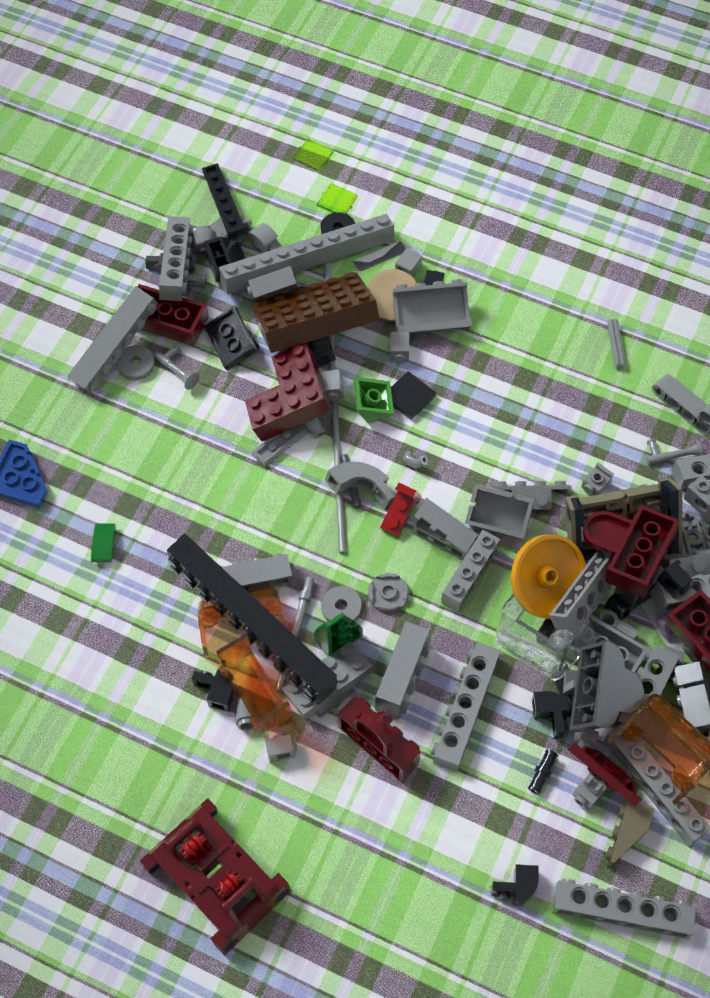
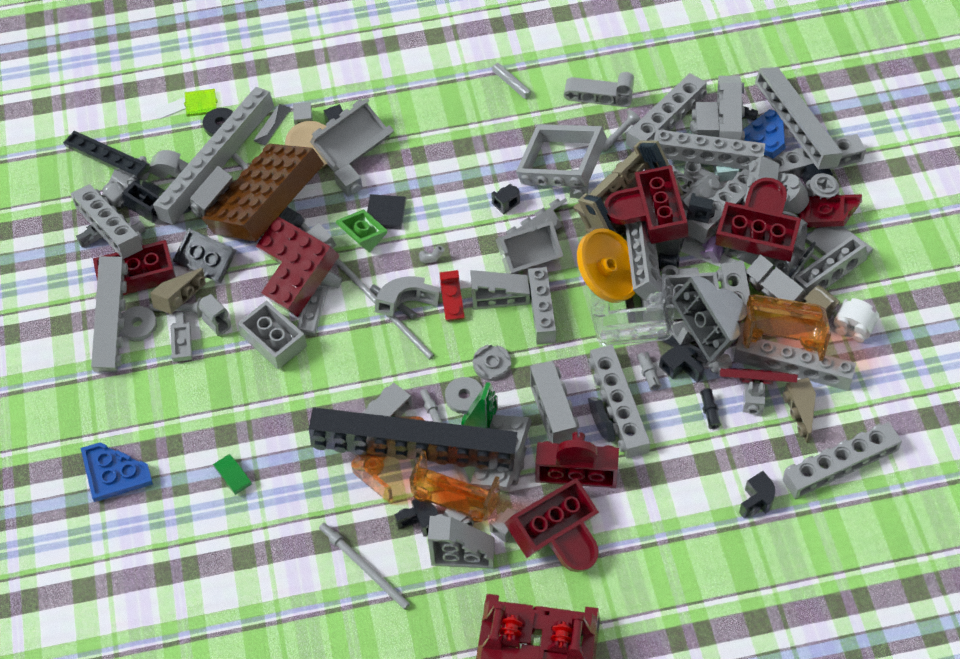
camera: 35 degrees left, 5 degrees down
(137, 658) = (337, 540): none -> light grey bar
(156, 398) = (181, 339): none -> light grey hinge
(181, 355) = (176, 291): none -> dark tan slope
(194, 395) = (214, 314): none -> light grey brick
(222, 736) = (459, 544): none -> light grey brick
(226, 443) = (272, 334): none -> light grey brick
(309, 190) = (170, 108): none -> white sticker
(313, 155) = (149, 79): clear neon green piece -> none
(316, 781) = (559, 523): none -> dark red brick
(437, 711) = (601, 420): none -> black tile
(517, 697) = (649, 371): none -> light grey pin
(521, 451) = (506, 198): none -> black brick
(641, 443) = (562, 133): none -> light grey window

